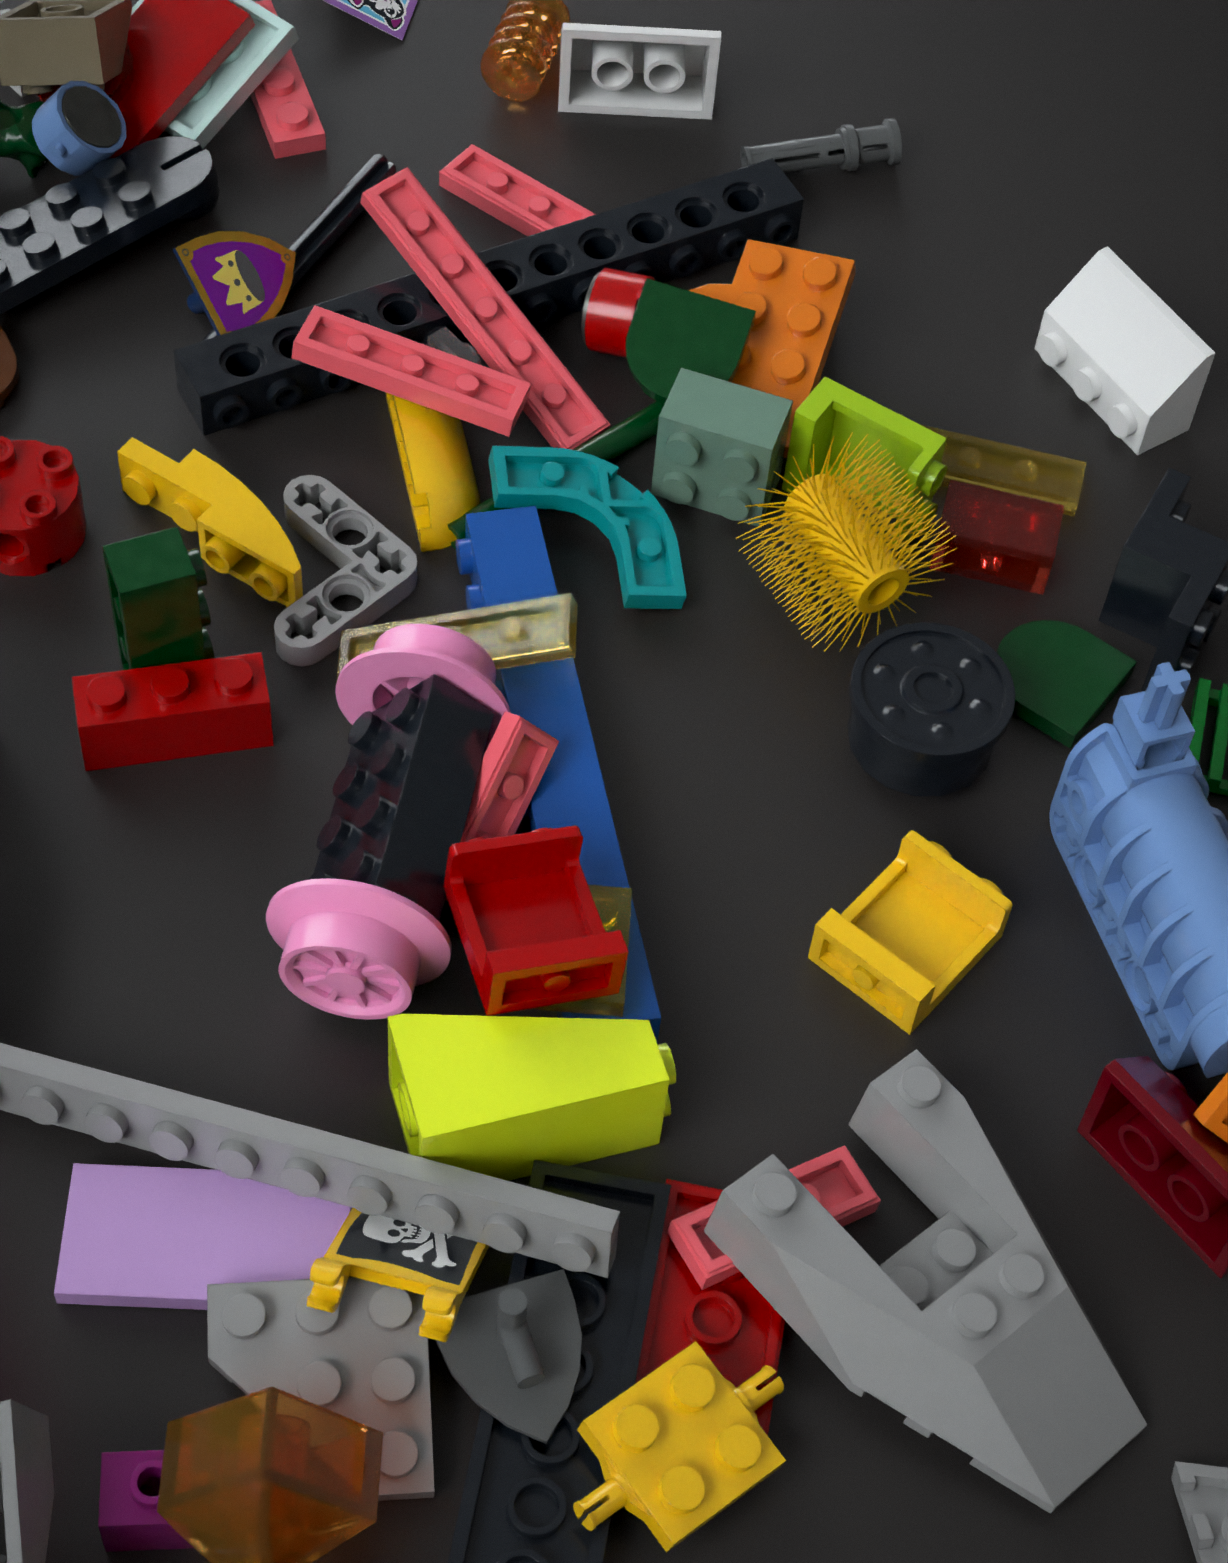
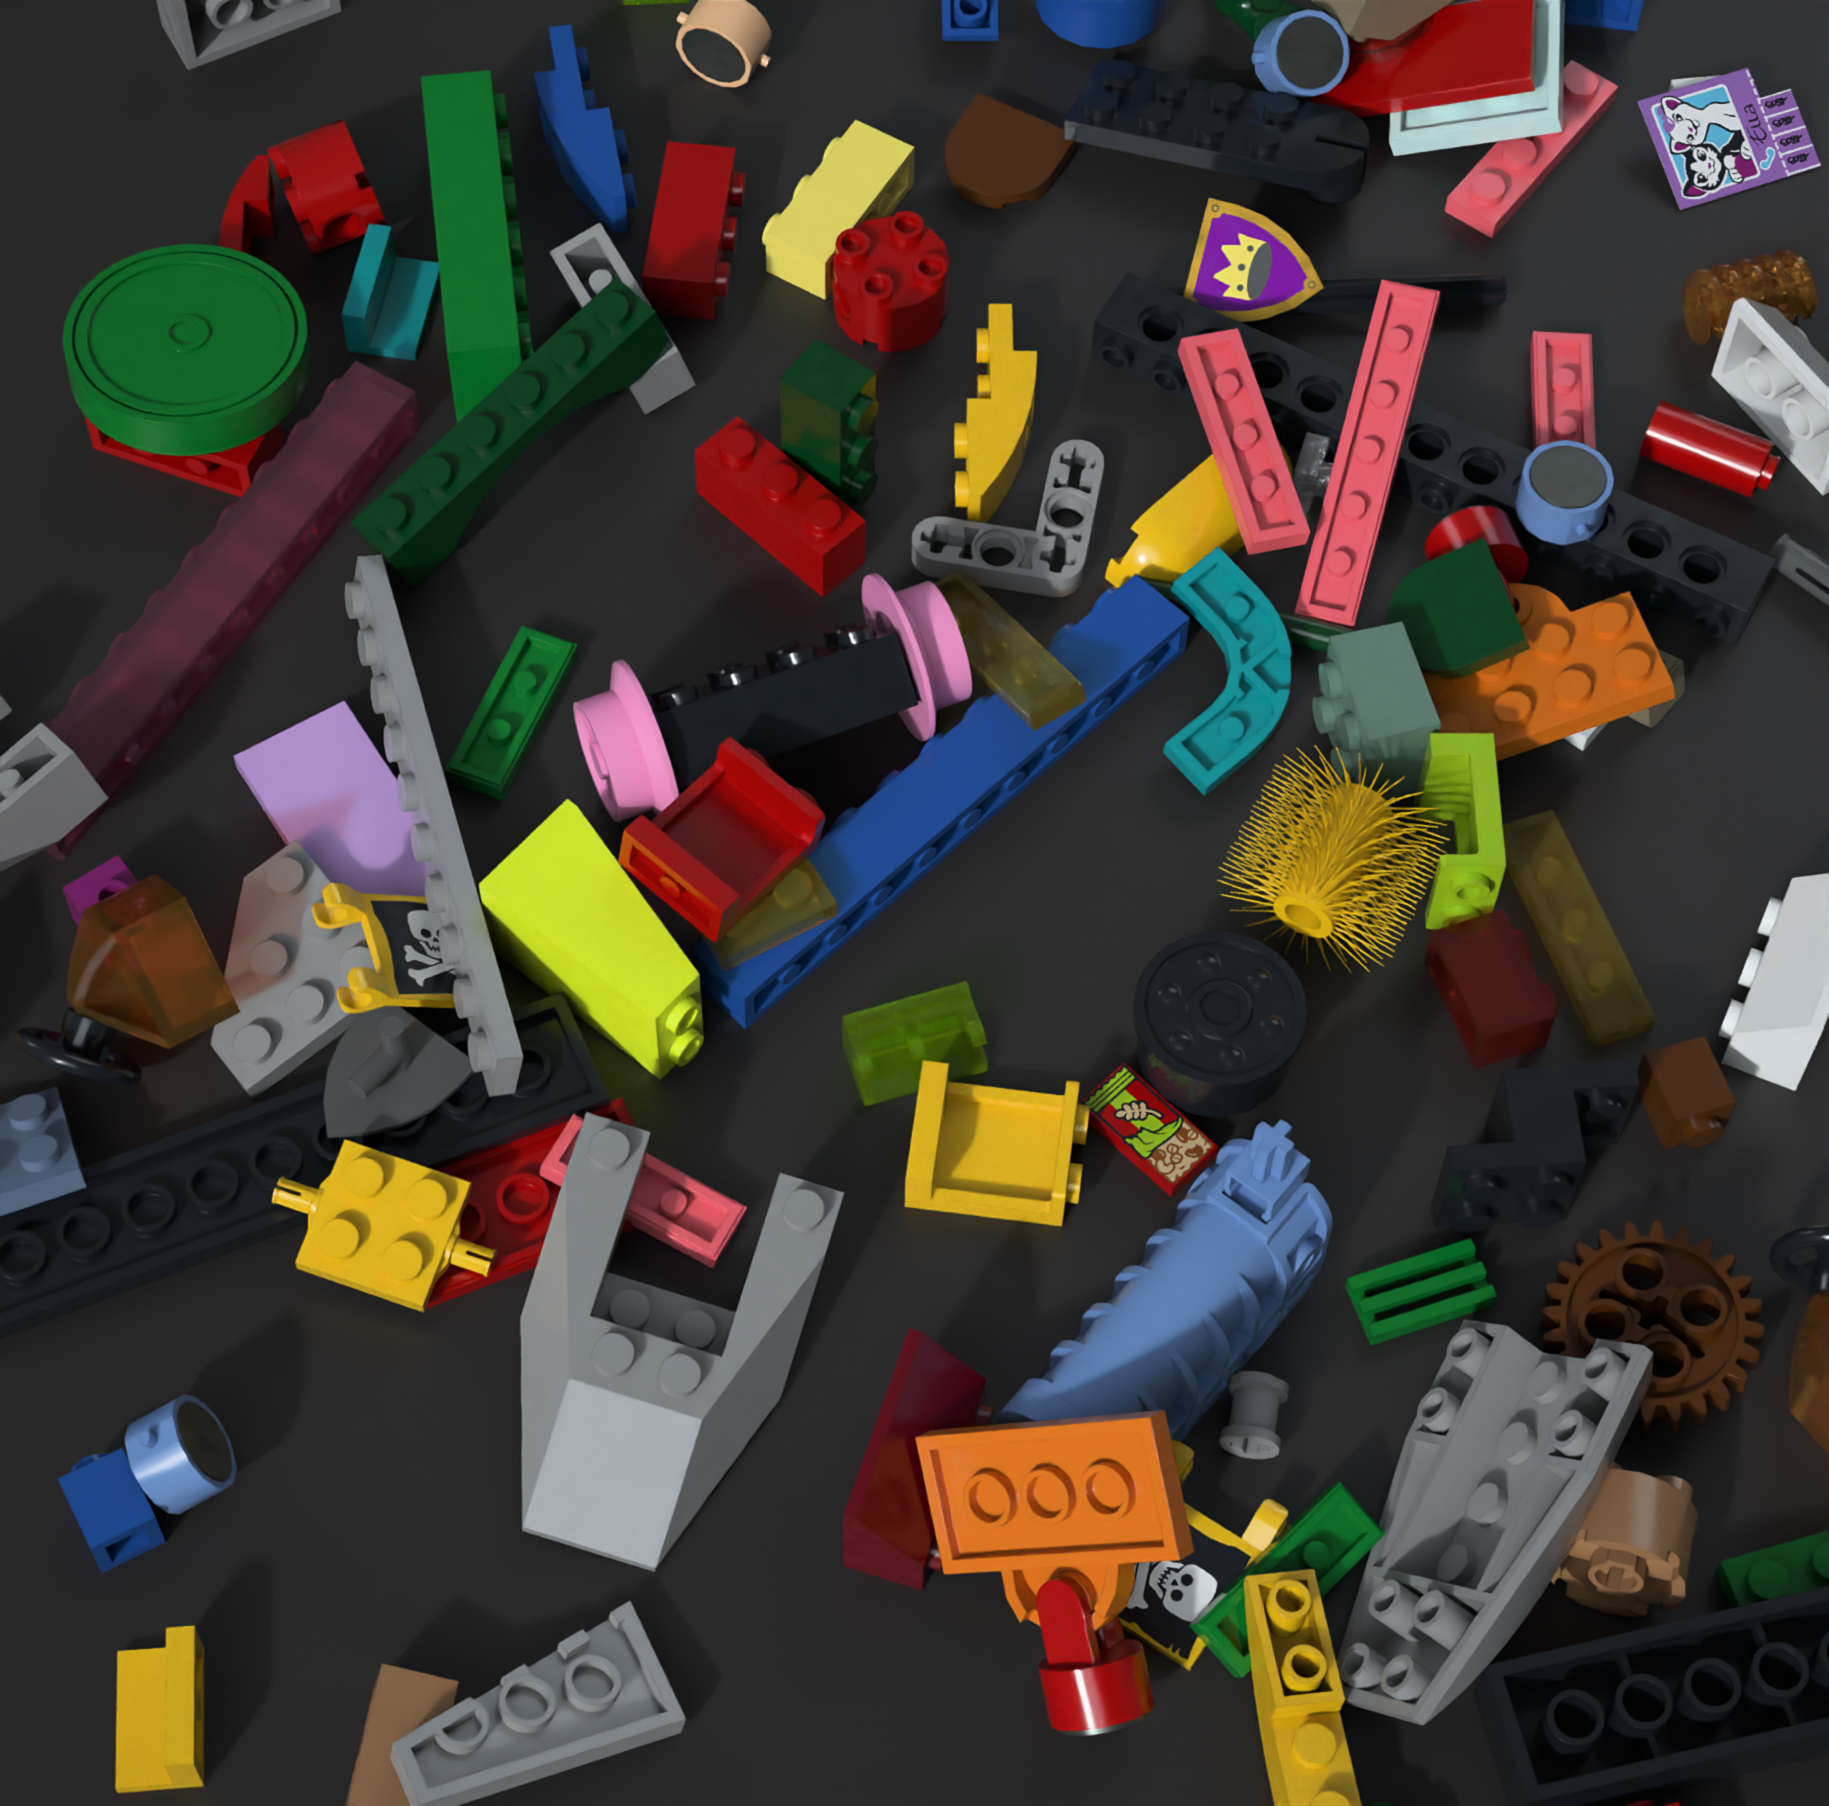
camera: 60 degrees right, 5 degrees up
(194, 1032) = (512, 713): none -> green tile
(508, 778) = (860, 759): coral tile -> none
(628, 222) = (1564, 492): none -> piece
(633, 143) = (1709, 450): none -> red brick
(775, 931) = (893, 1039): none -> clear neon green hinge
(966, 820) = (1148, 1130): none -> tile
(1062, 676) = (1378, 1124): dark green tile -> none
(1150, 465) = (1685, 1093): none -> reddish brown brick

